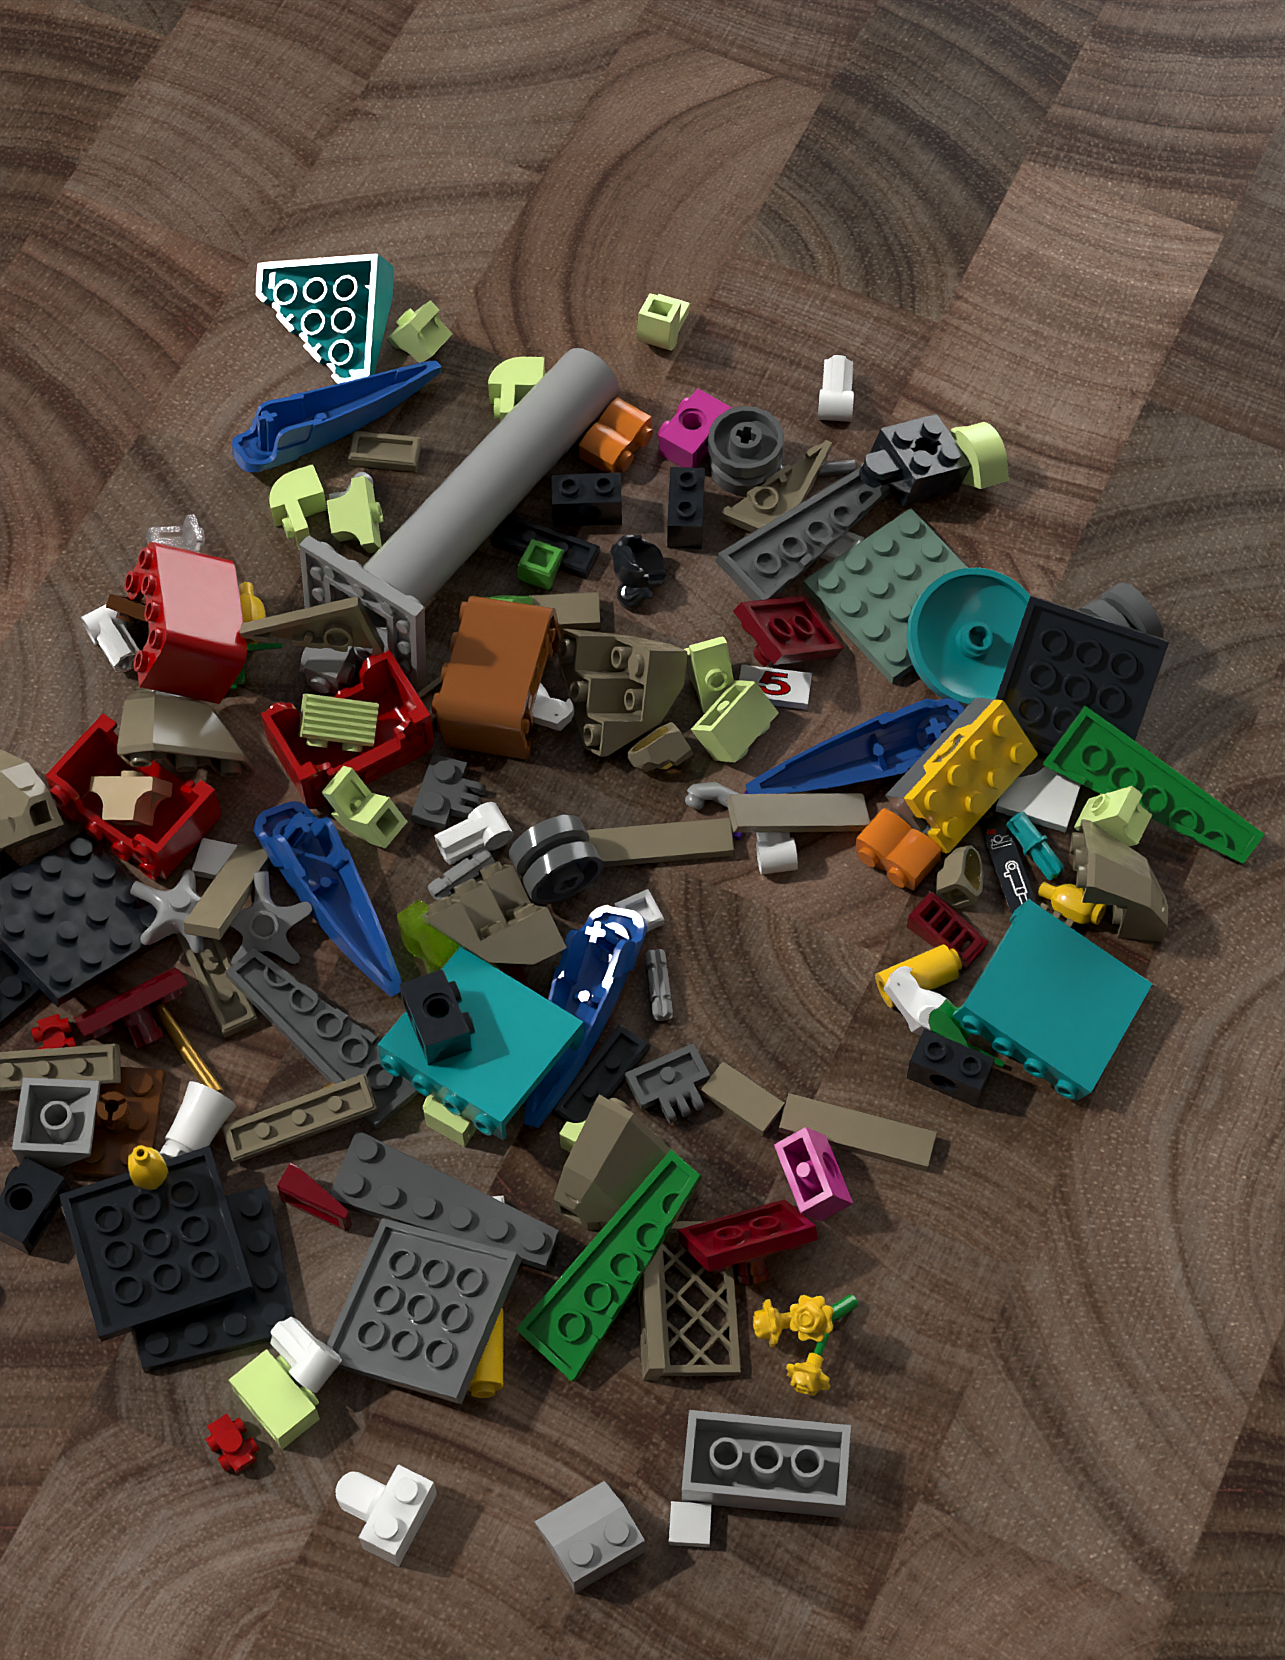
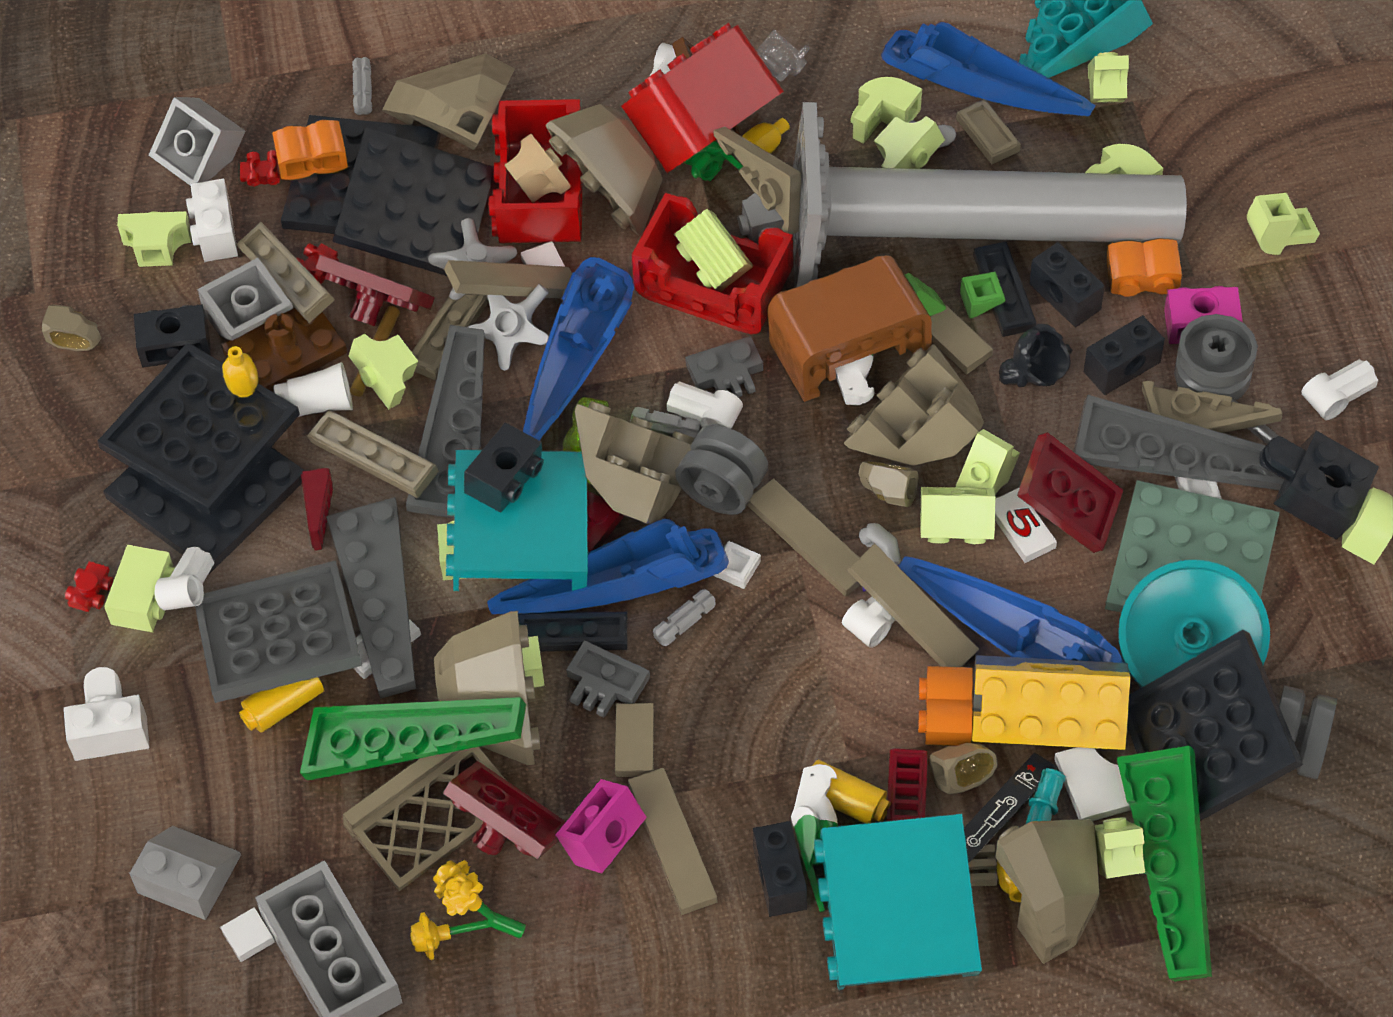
camera: 55 degrees right, 5 degrees down
(221, 1052) = (384, 366): none -> yellowish green brick
(362, 812) = (659, 318): yellowish green brick -> none

